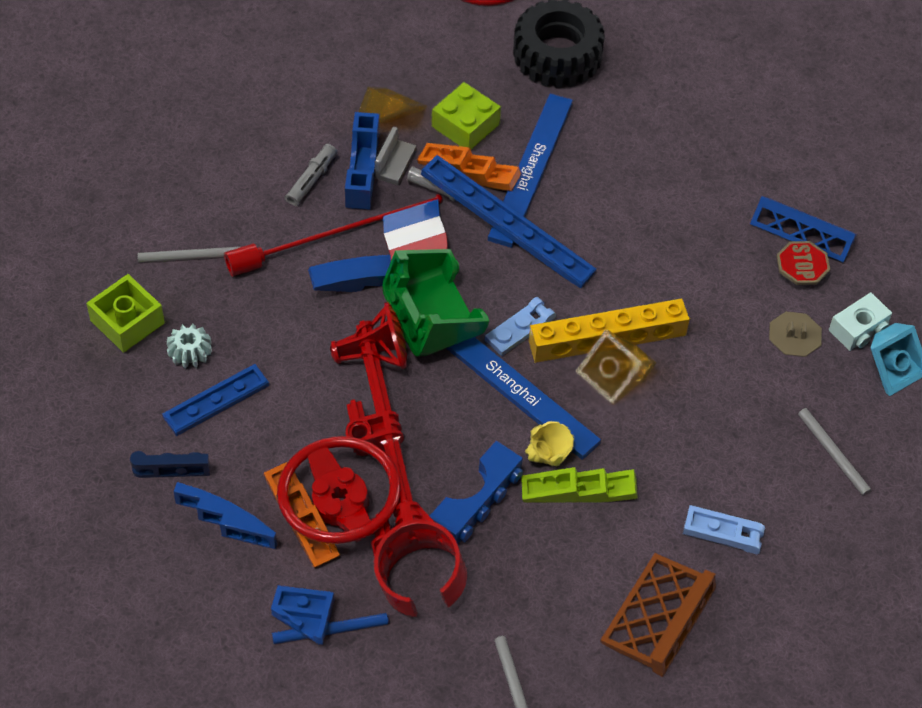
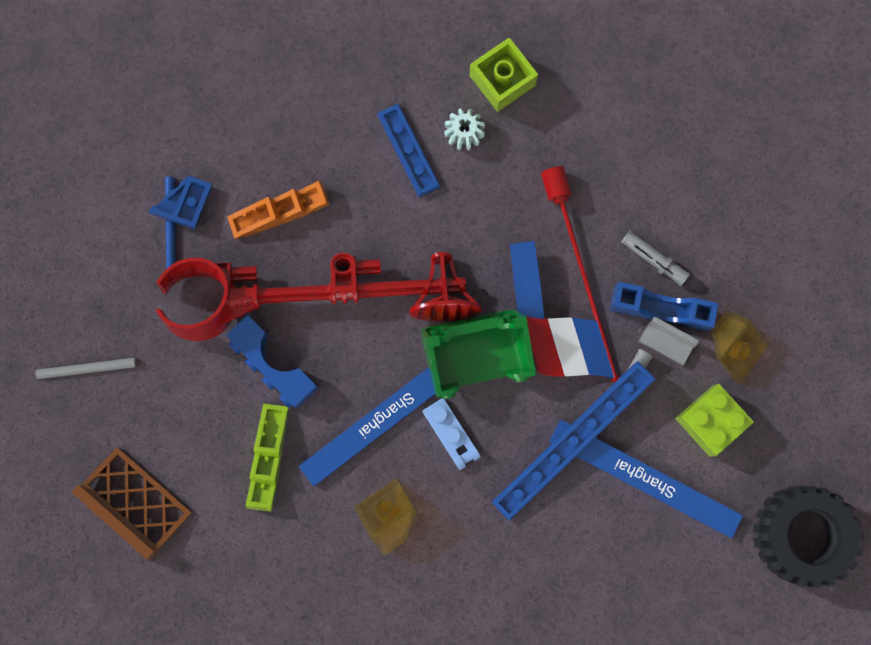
camera: 105 degrees right, 25 degrees up
(169, 465) = (342, 104): dark blue plate -> none
(183, 255) = (572, 138): light grey bar -> none
(233, 520) = (278, 153): blue slope -> none
(334, 483) = (268, 249): red piece -> none
(478, 168) = (651, 414): orange slope -> none
(550, 443) = (309, 437): light yellow hair -> none
(634, 324) = (429, 518): yellow brick -> none
(724, 529) = (202, 580): light blue plate -> none

